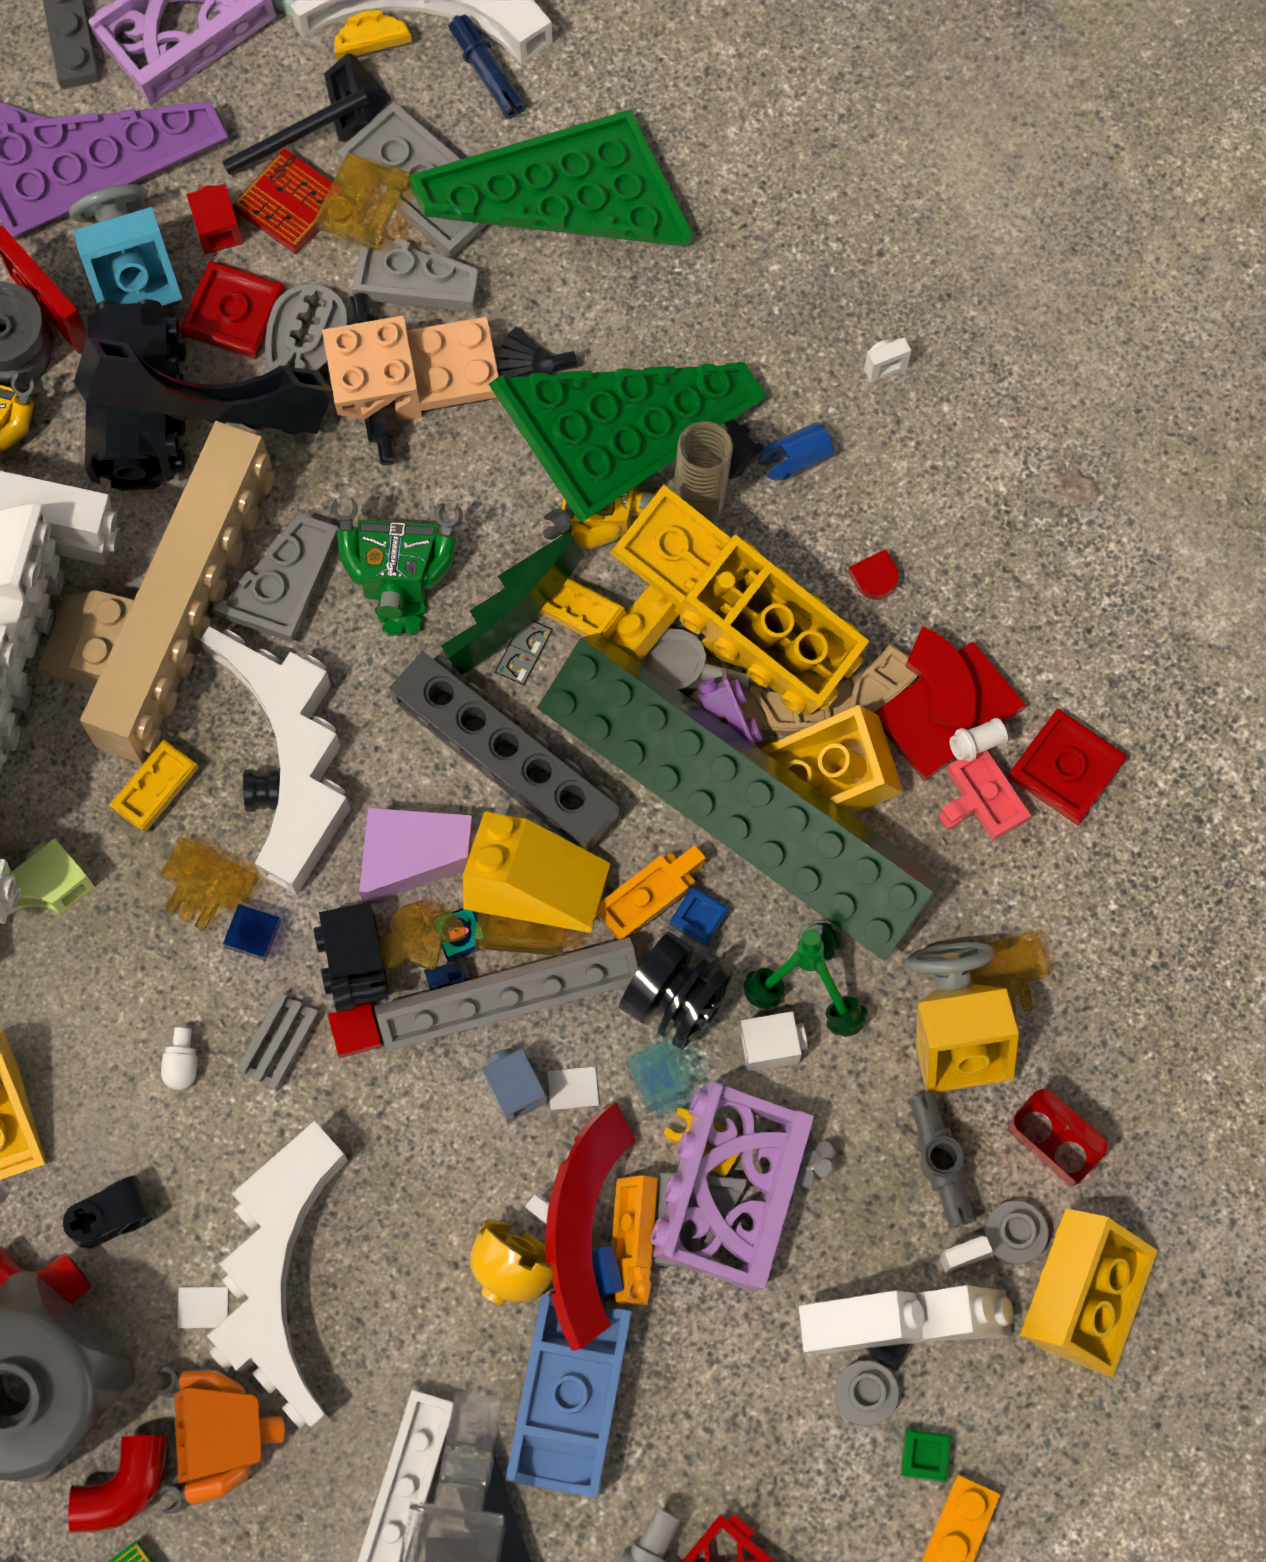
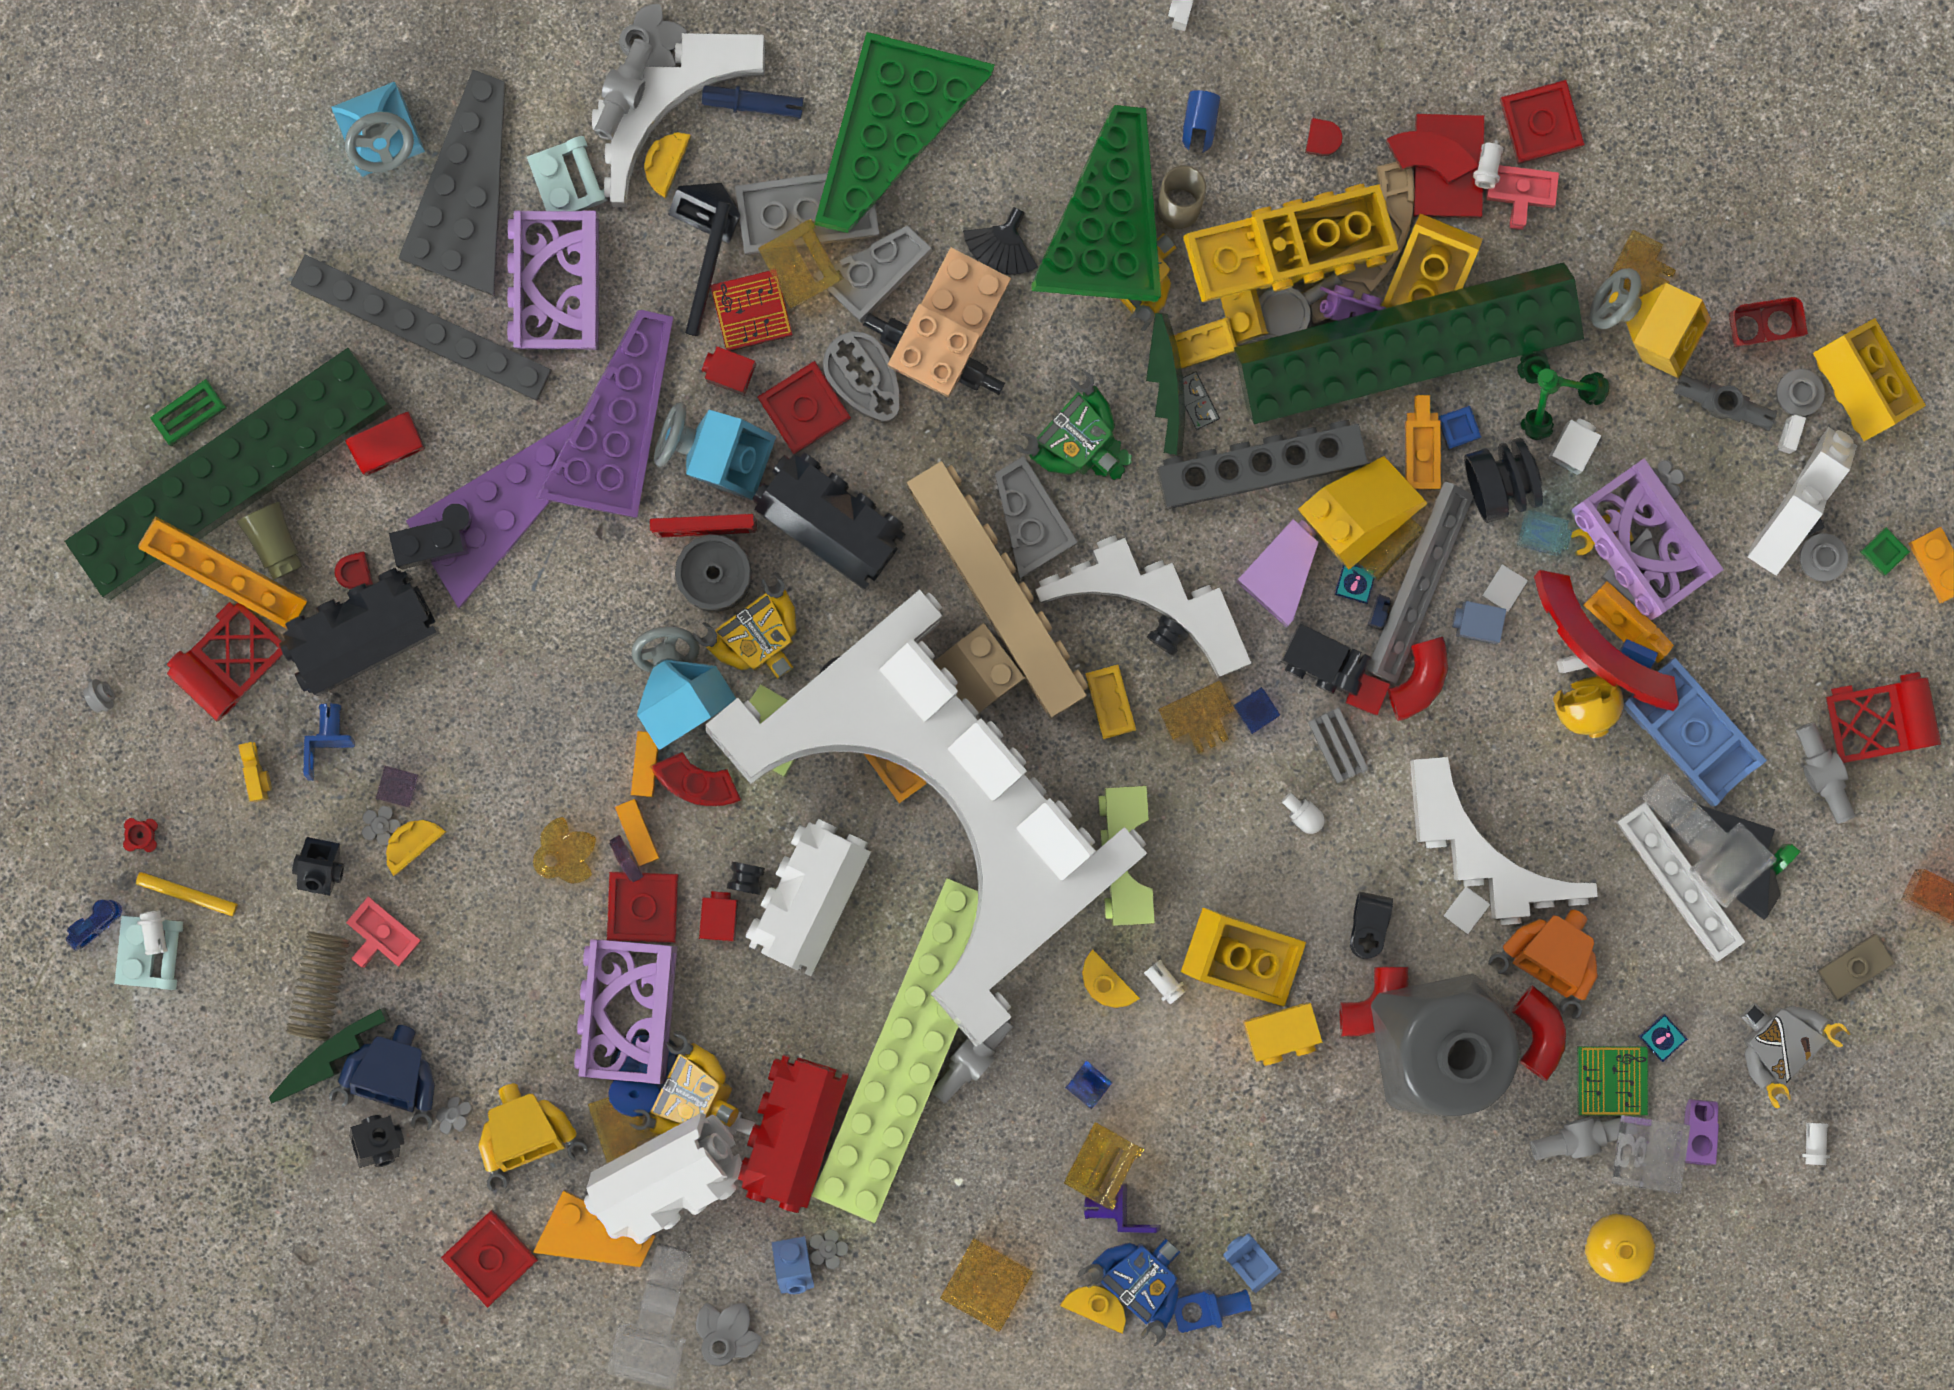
camera: 55 degrees left, 15 degrees up
(280, 399) = (910, 429): black arch -> none
(408, 1075) = (1424, 683): none -> red cylinder
(419, 936) = (1346, 609): clear yellow plate -> none
(744, 449) = (1166, 156): black tile -> none

